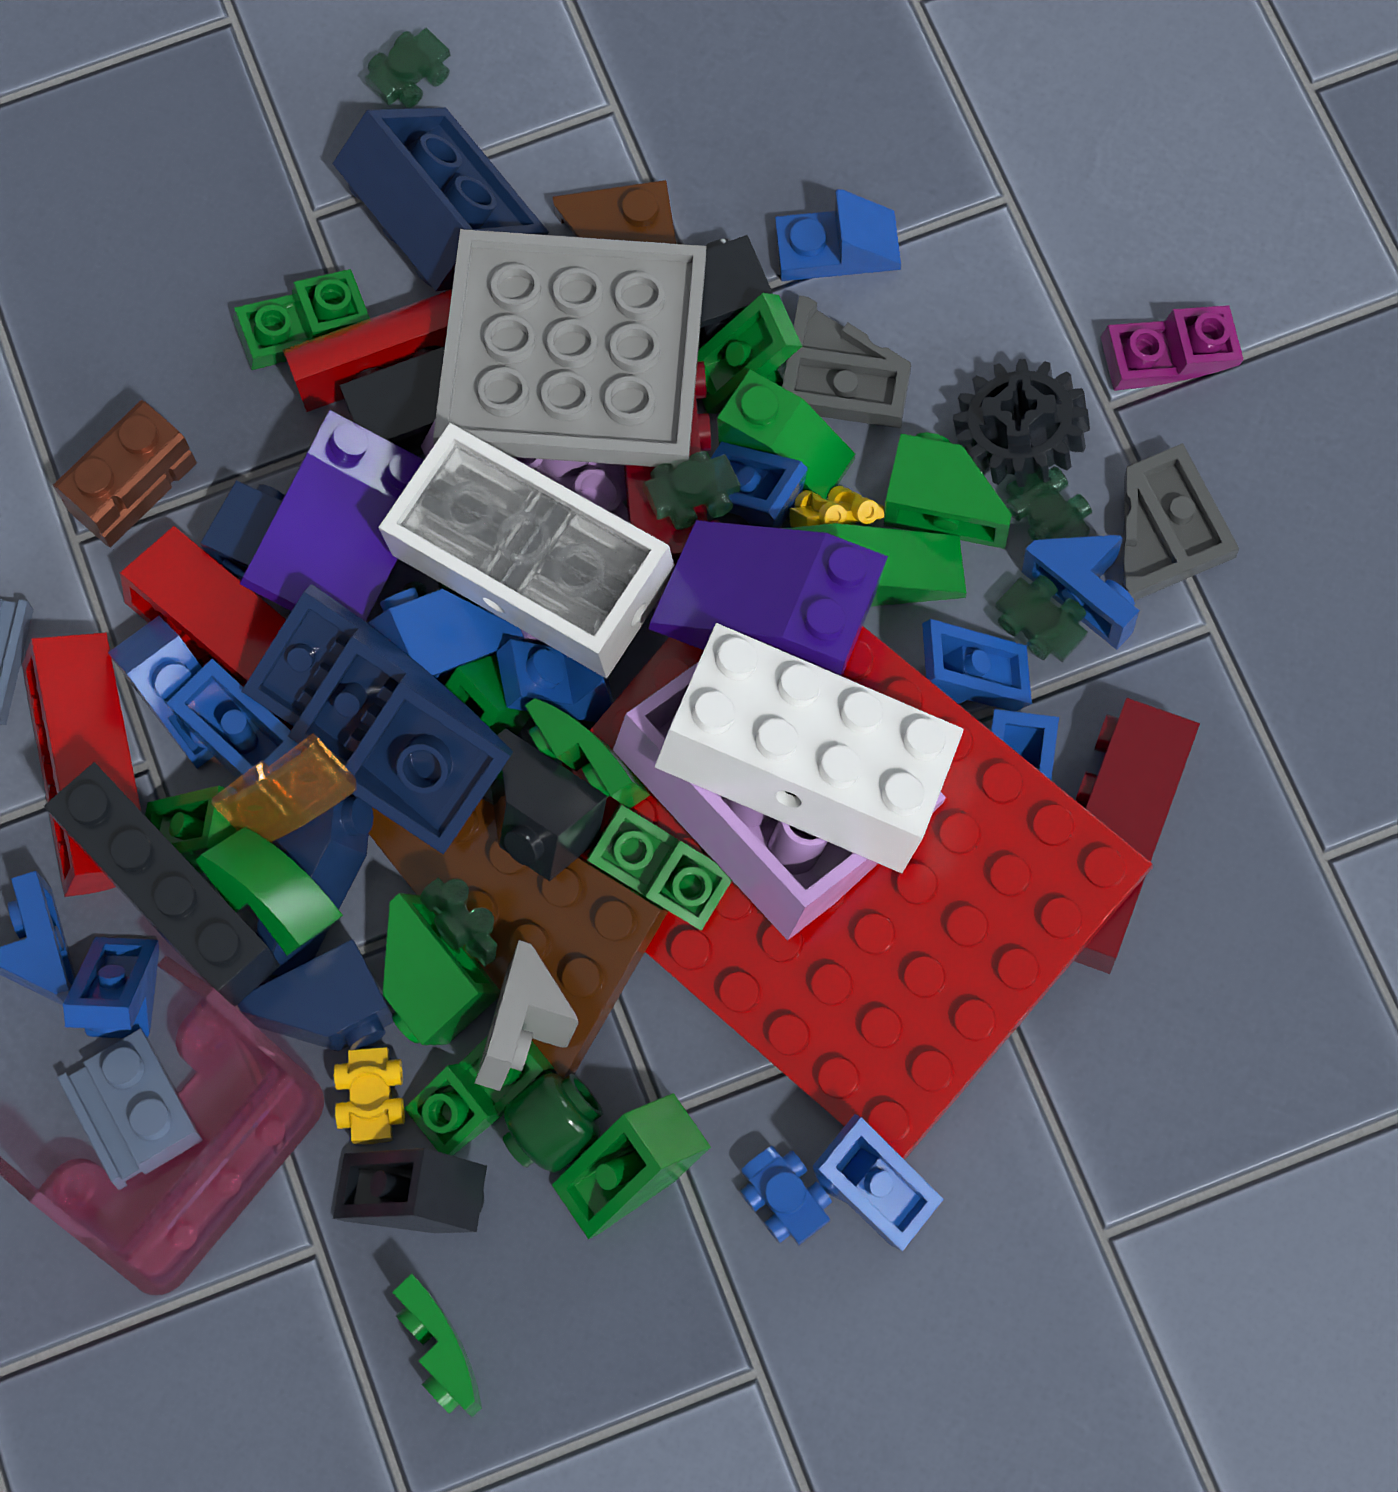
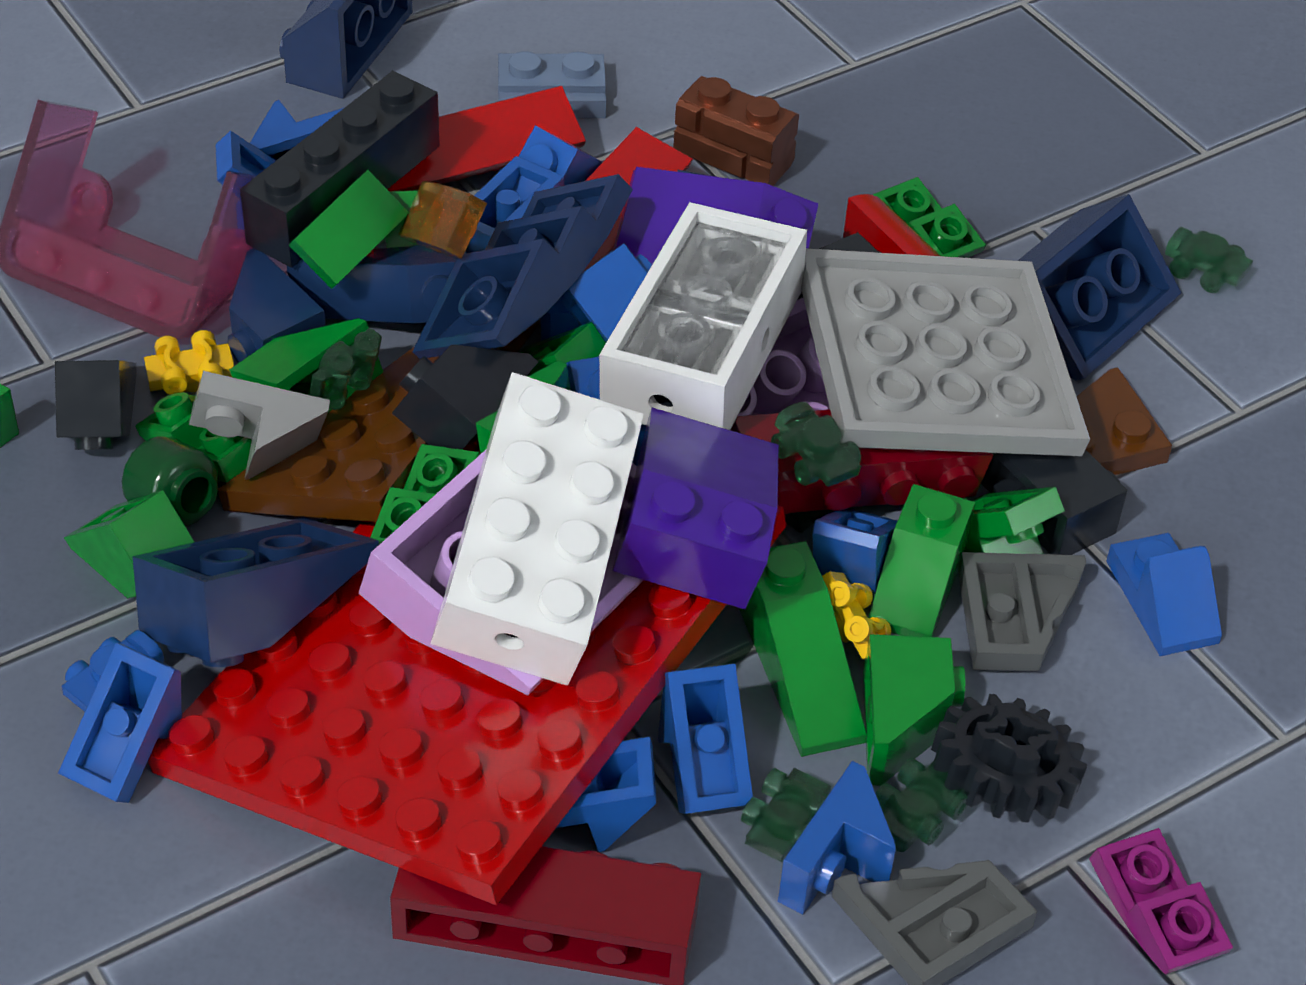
camera: 70 degrees right, 25 degrees down
(130, 1109) = (155, 220): sand blue plate -> none
(724, 1047) = (243, 587): none -> dark blue slope

